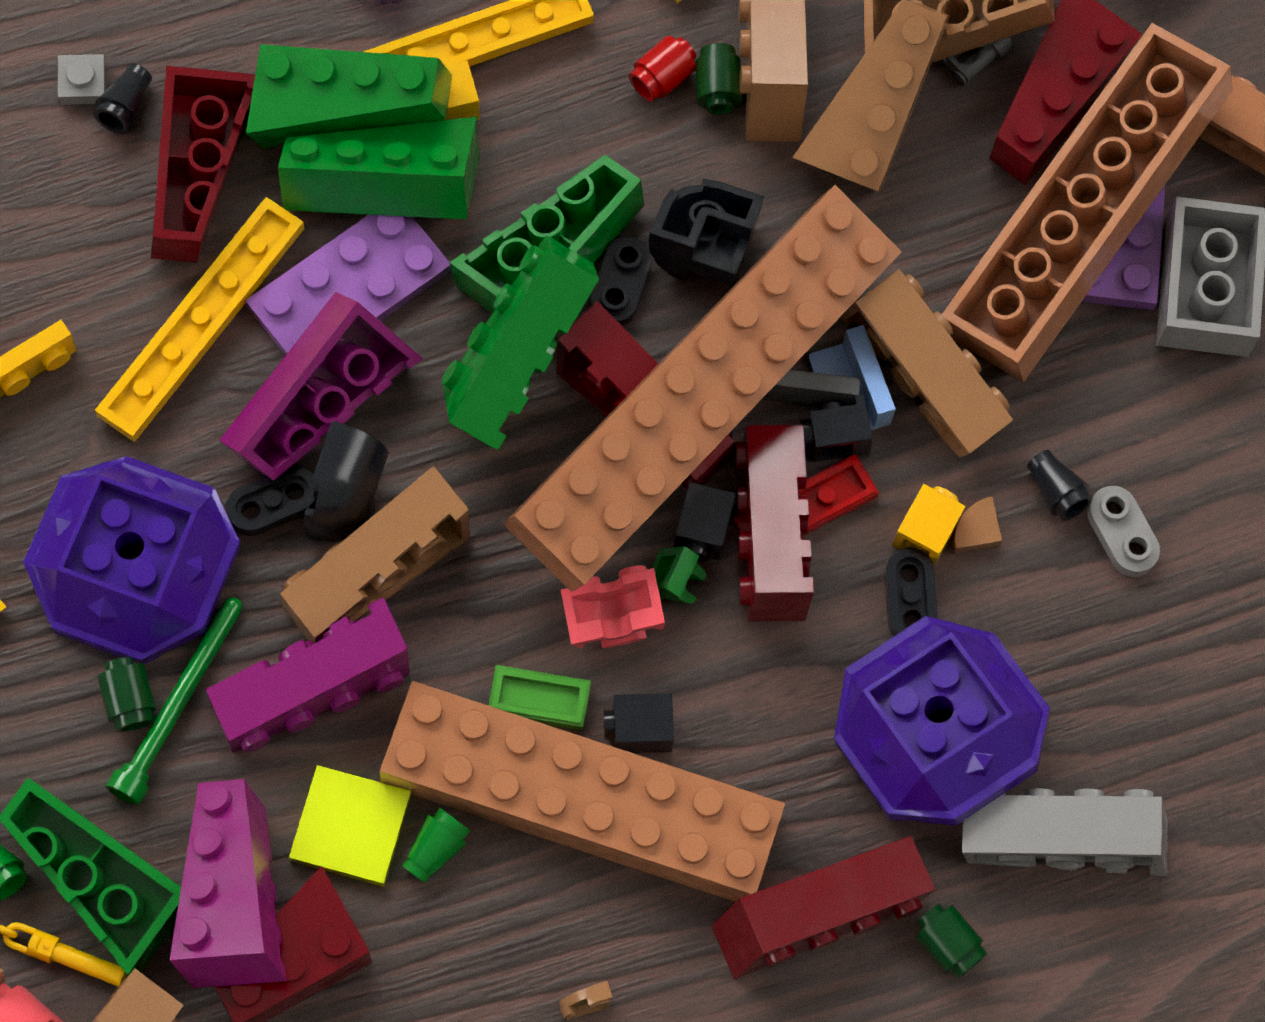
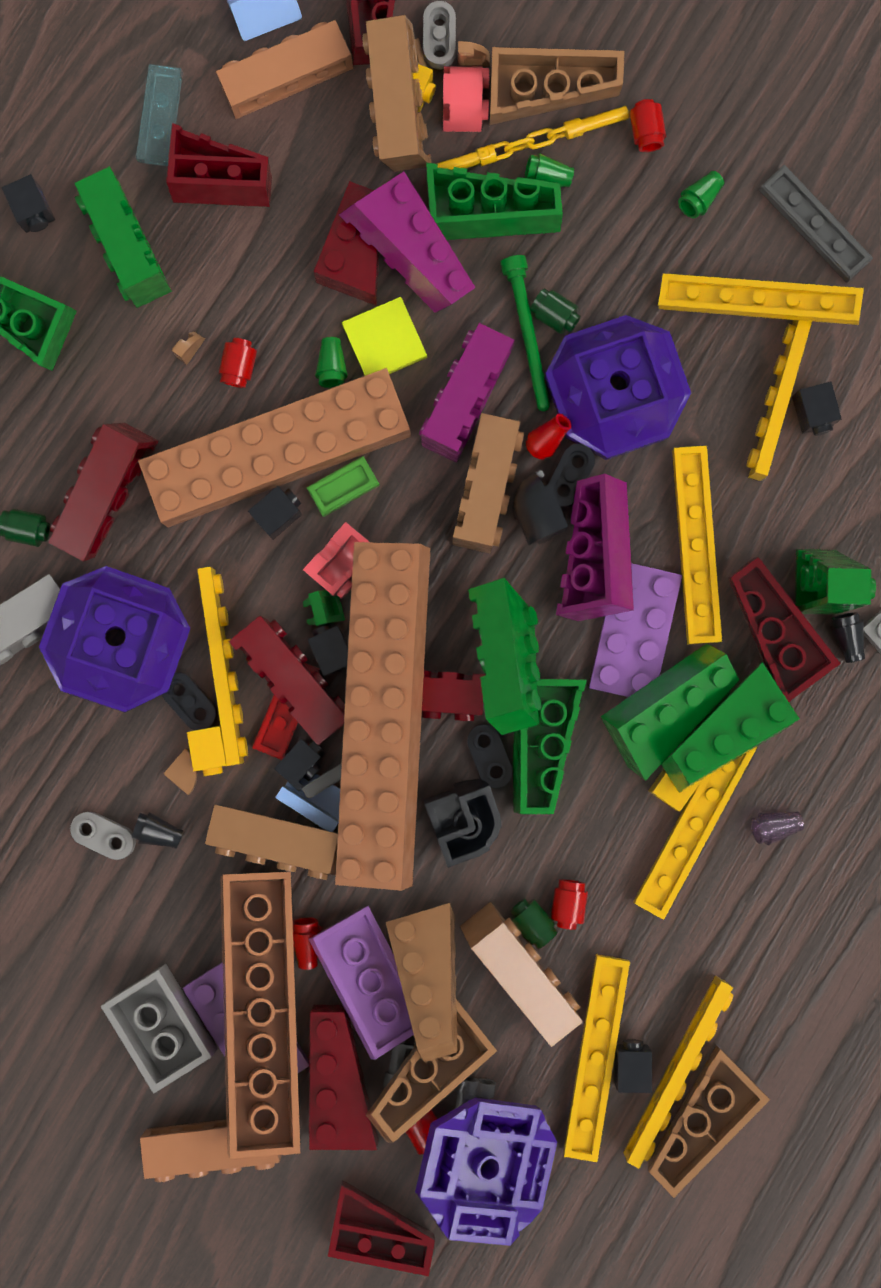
camera: 150 degrees right, 15 degrees up
(102, 148) = (831, 582): none -> green wedge
(264, 558) = (546, 438): none -> red cone
(545, 933) = (237, 363): none -> red brick
(831, 618) = (220, 653): none -> yellow plate
(946, 155) = (365, 980): none -> medium lavender plate
(975, 244) = (303, 930): none -> red cone

